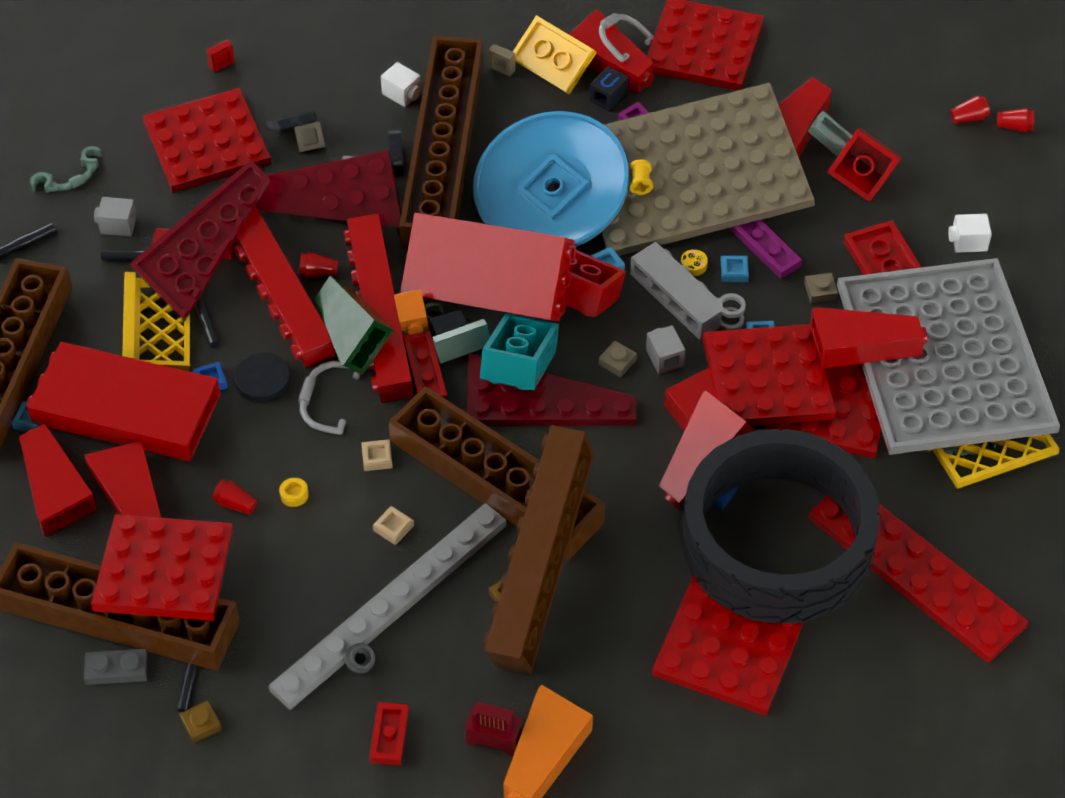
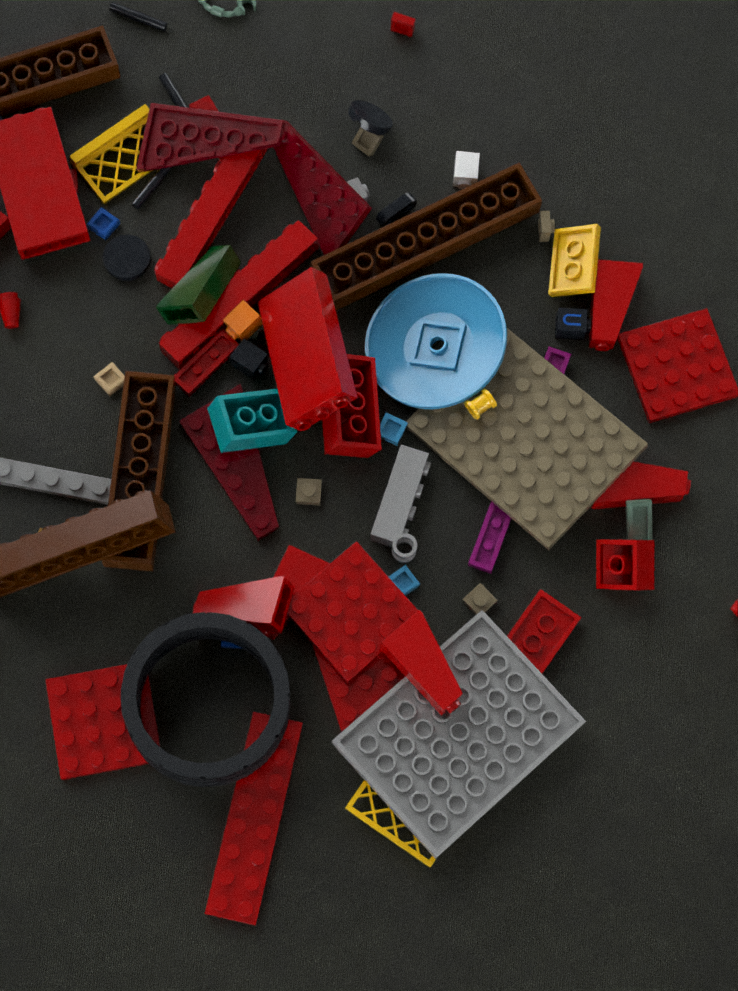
camera: 50 degrees right, 20 degrees up
(116, 216) = (199, 61): light grey brick -> none
(205, 139) = (318, 70): red plate -> none
(294, 492) = (43, 344): yellow tile -> none
(306, 393) = (127, 298): light grey piece -> none
(315, 265) = (249, 227): red cone -> none
(393, 525) = (58, 429): tan tile -> none
(461, 341) = (240, 372): sand green tile -> none
(613, 19) = (629, 282): light grey piece -> none
(665, 349) = (336, 520): light grey brick -> none
(695, 261) = (439, 492): yellow tile -> none
(734, 269) = (454, 525): dark azure tile -> none
(970, 233) = (611, 684): white brick -> none

